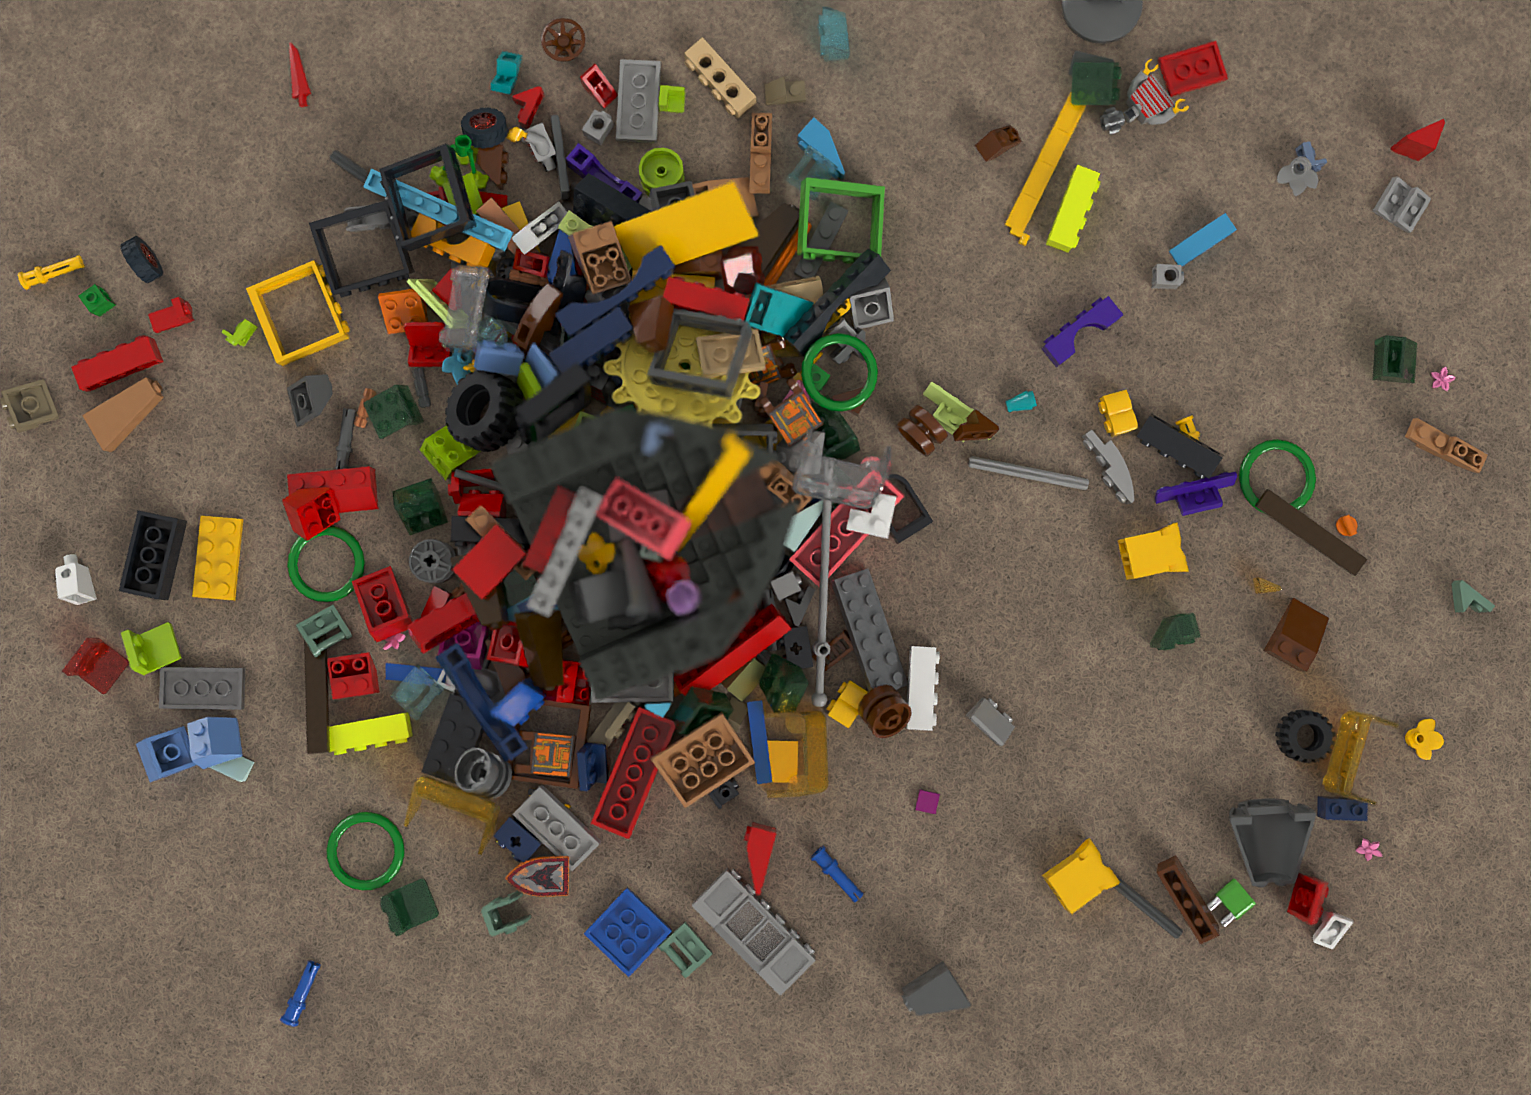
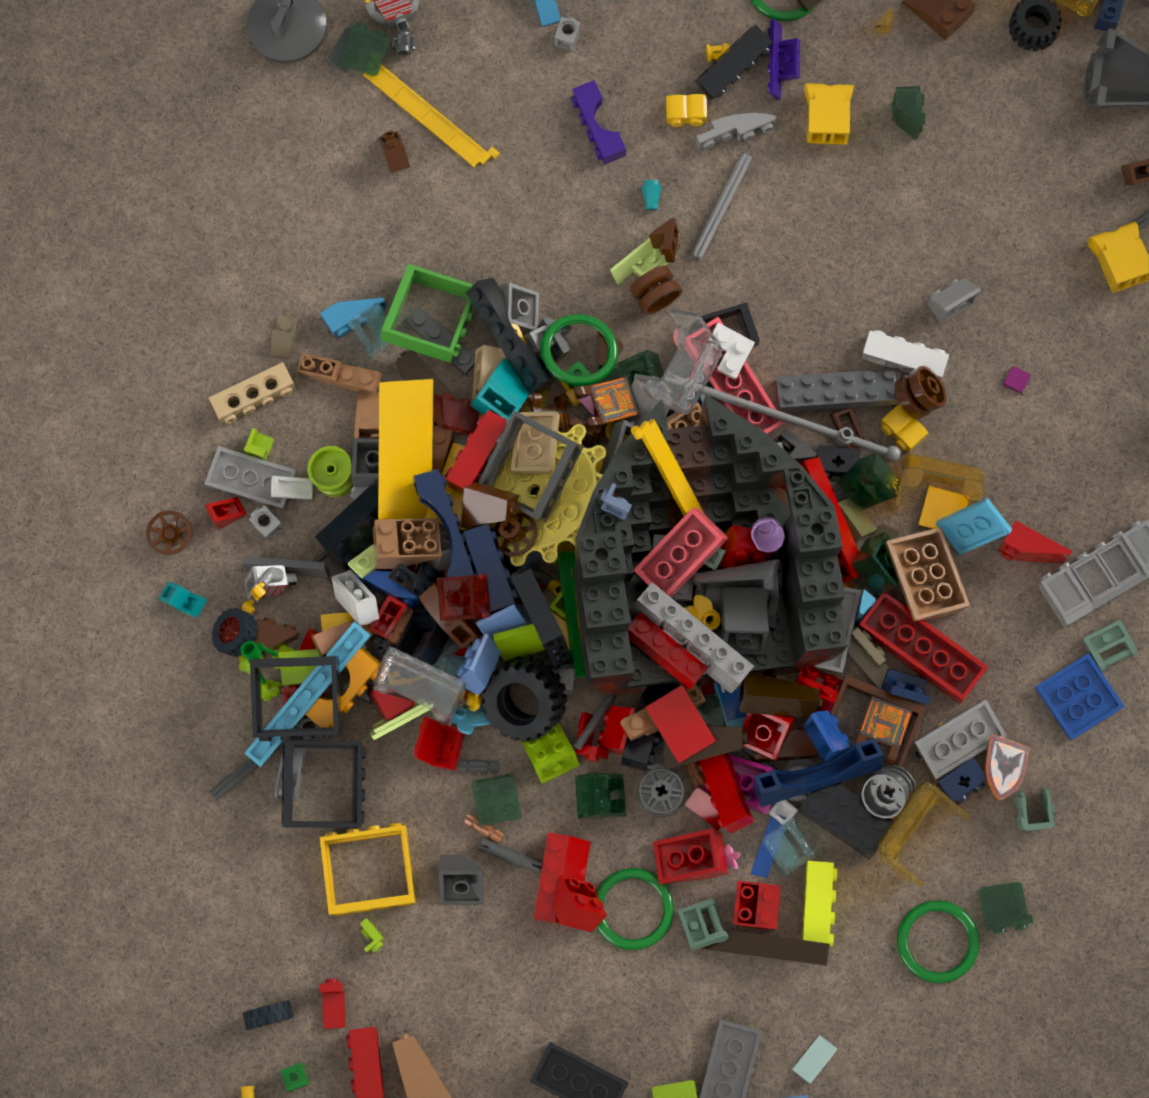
camera: 70 degrees left, 10 degrees down
(214, 741) = (788, 1064): medium blue slope -> none
(217, 558) = (598, 1019): yellow plate -> none
(297, 1002) = (1078, 1049): blue pin -> none
(300, 86) = (127, 812): red bar -> none
(402, 308) = (395, 761): orange plate -> none
(530, 101) = (219, 582): red slope -> none
(551, 324) = (463, 597): none -> clear red slope
(584, 162) = (303, 541): dark purple arch -> none
(634, 356) = (513, 532): none -> reddish brown wheel
(635, 139) = (291, 487): none -> white tile
(731, 791) = (964, 566): black brick -> none
(759, 742) = (908, 520): blue sticker -> none
(762, 794) = (973, 526): none -> medium azure tile
(783, 259) = (446, 376): orange axle -> none
(830, 867) = (1059, 486): blue pin -> none
(833, 35) = (244, 275): clear light blue slope -> none
(1073, 208) = (478, 100): neon yellow brick -> none

